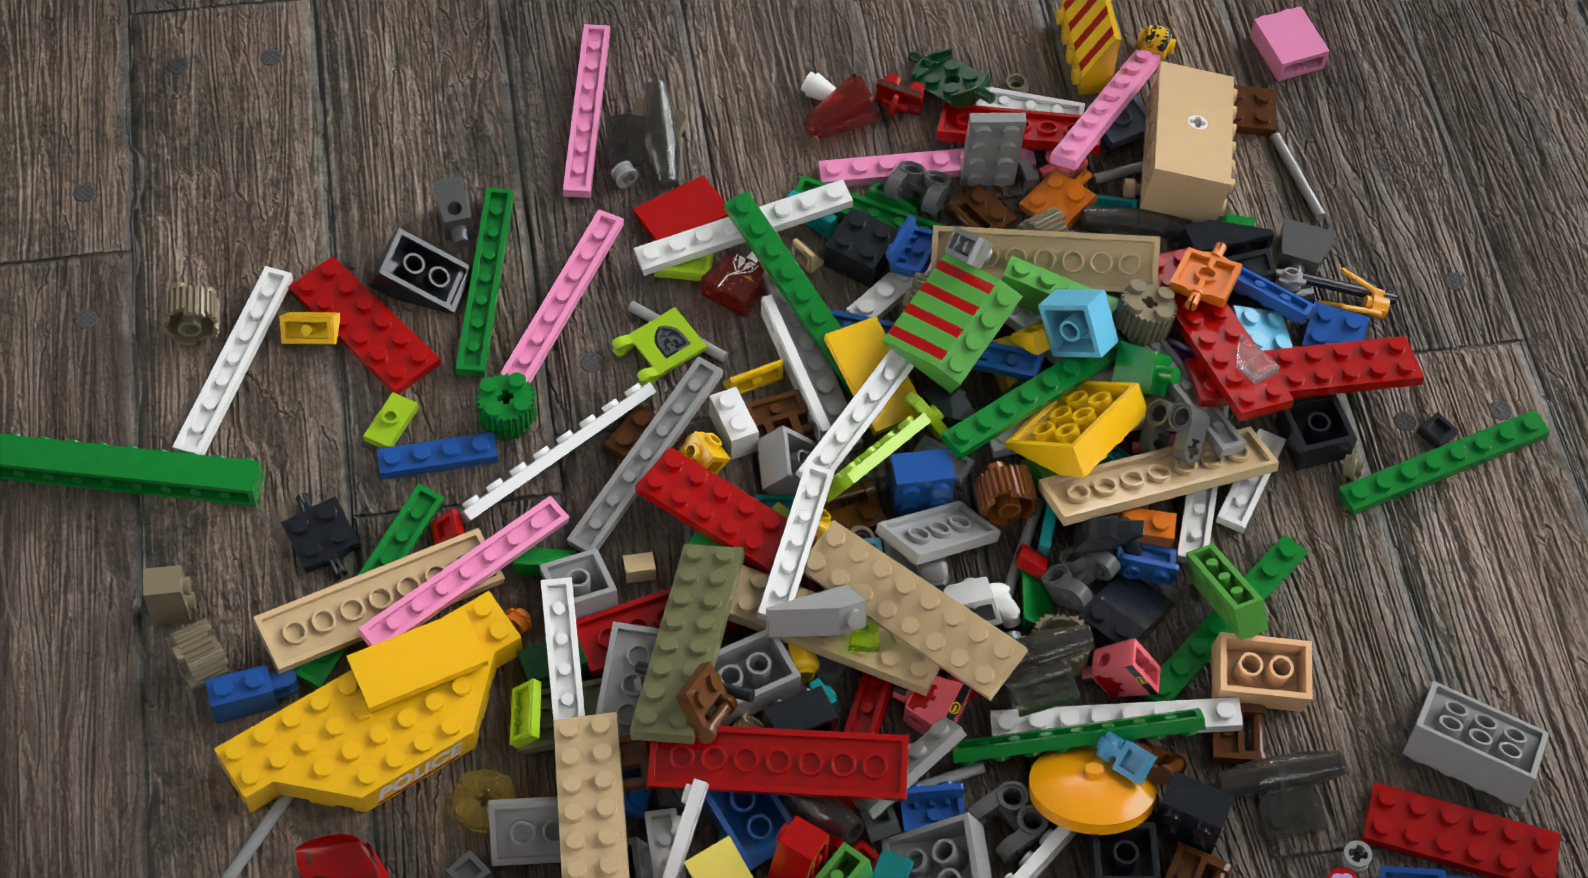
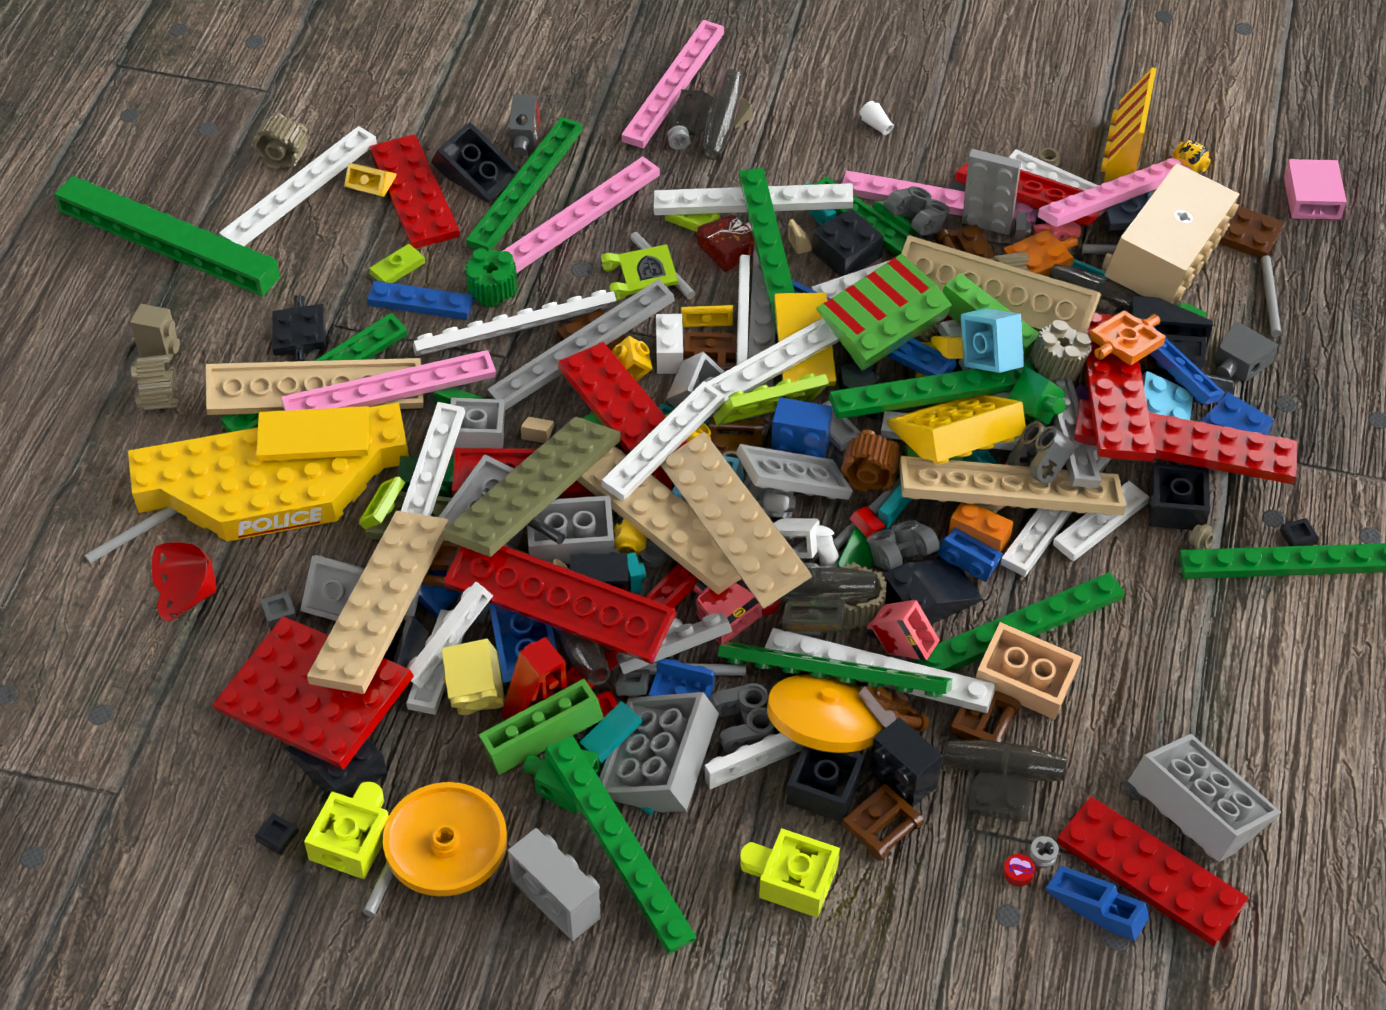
camera: 25 degrees right, 5 degrees down
(248, 692) = (179, 422): blue brick -> none
(447, 526) = (399, 349): red tile -> none
(473, 786) = (321, 546): clear yellow plate -> none
(520, 619) = (416, 437): orange plate -> none
(681, 209) = (709, 173): red tile -> none
(698, 696) = (513, 519): reddish brown plate -> none
(818, 614) = (649, 496): light grey slope -> none
(843, 110) = (884, 136): clear red cone -> none
(865, 639) = (685, 531): clear neon green tile -> none
(898, 97) = (940, 141): red hips -> none
(910, 249) = (882, 249): blue bracket -> none
(919, 406) = (835, 381): lime plate -> none
(951, 79) = (991, 135): dark green plate -> none
(969, 248) = (928, 259): light grey slope -> none
(1107, 533) = (938, 513): black connector -> none
(1130, 759) = (862, 693): dark azure plate -> none
(1227, 591) = (1024, 594): bright green brick -> none
(1254, 361) = (1133, 412): clear tile -> none
(1290, 279) = (1214, 367): light grey plate -> none
(1343, 287) = (1265, 392): black bar -> none
(1373, 305) = (1286, 414): light orange plant -> none

